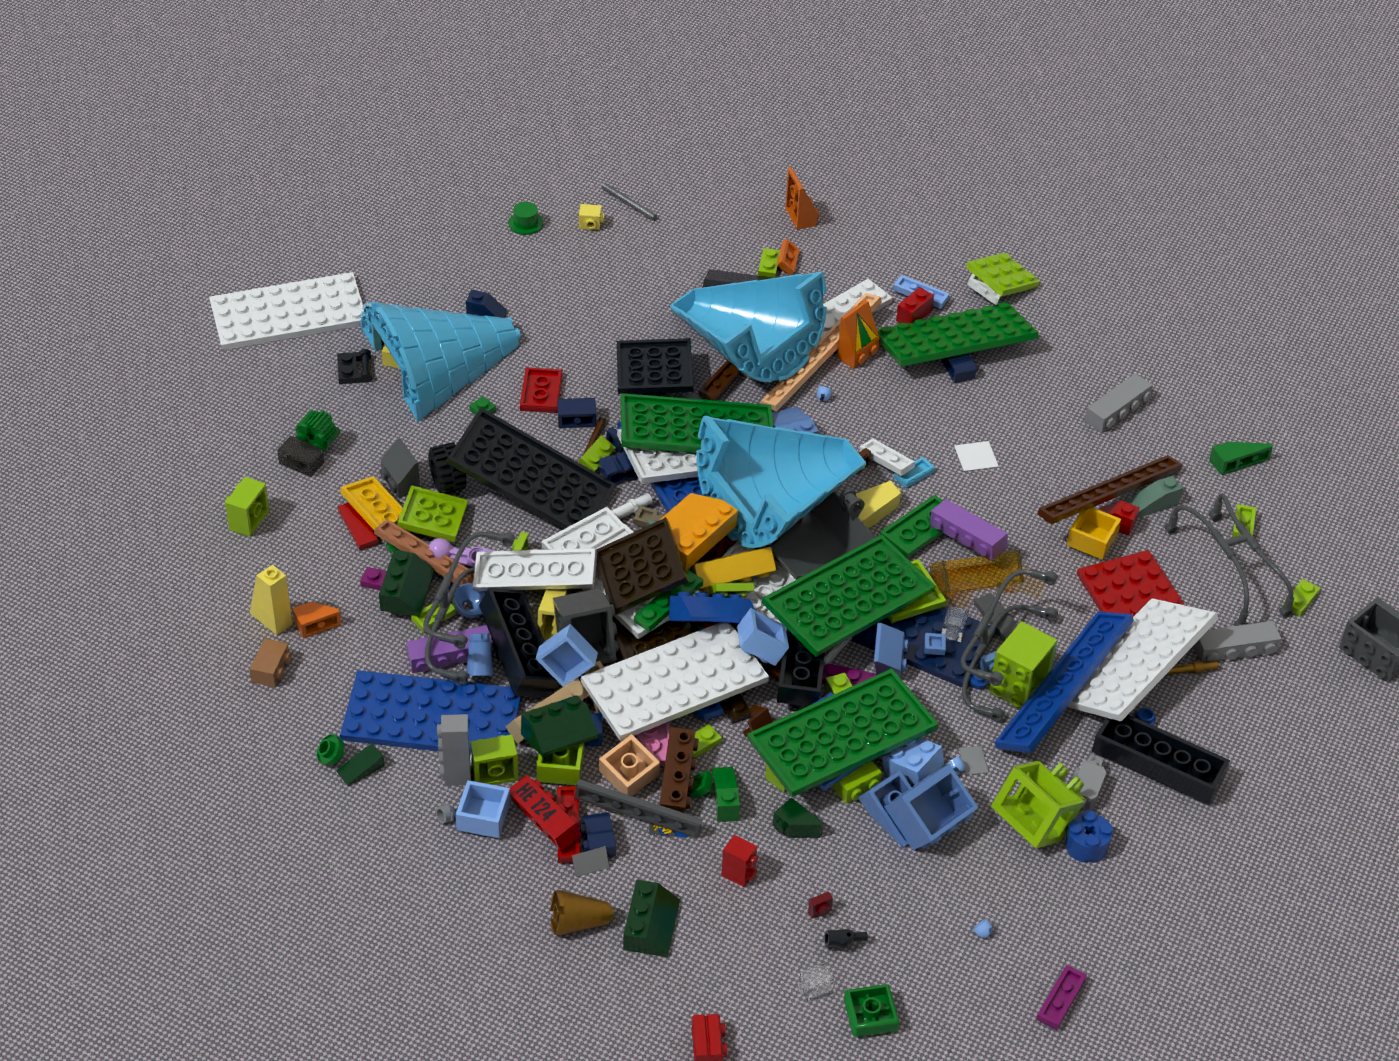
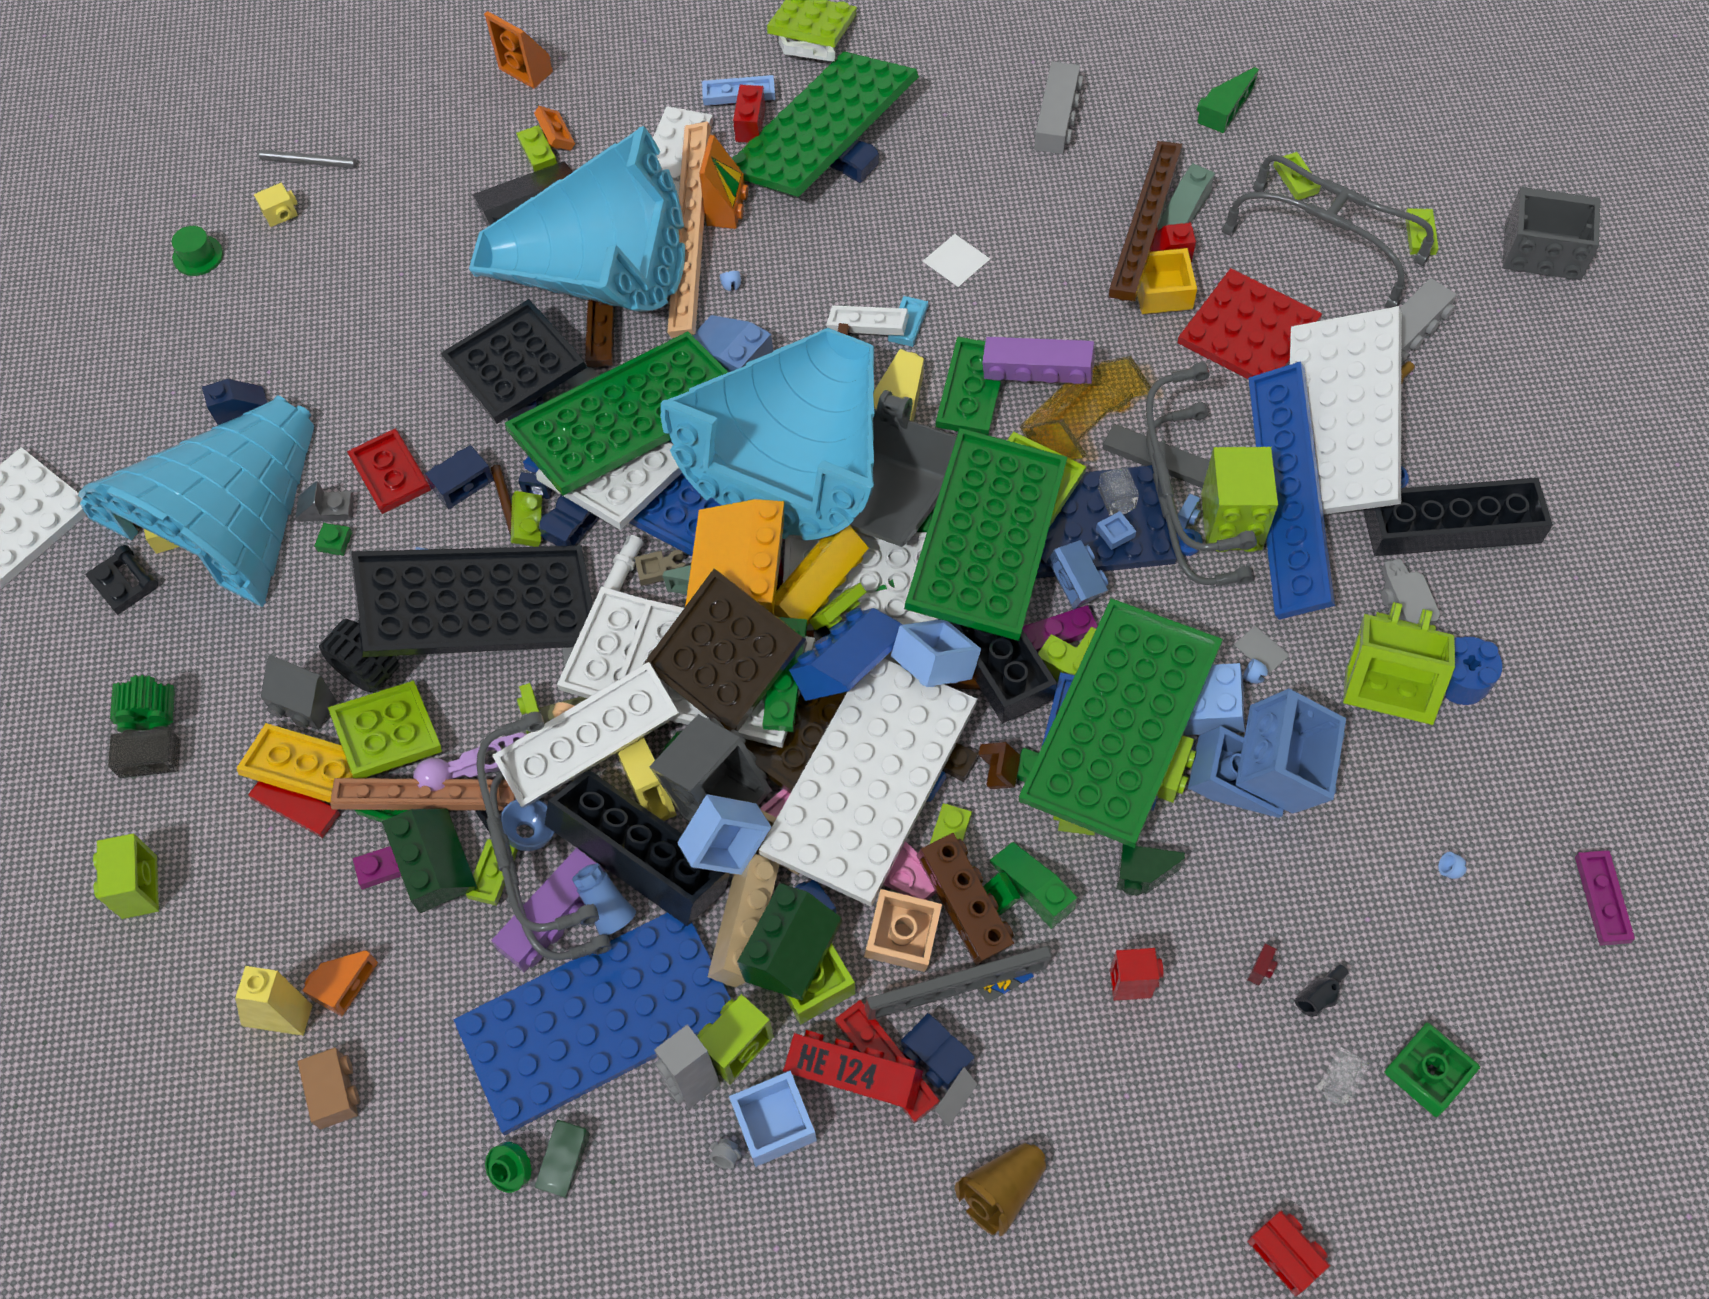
camera: 30 degrees left, 15 degrees up
(491, 389) = (323, 506): none -> flat silver slope
(650, 919) = (1089, 1128): dark green slope -> none

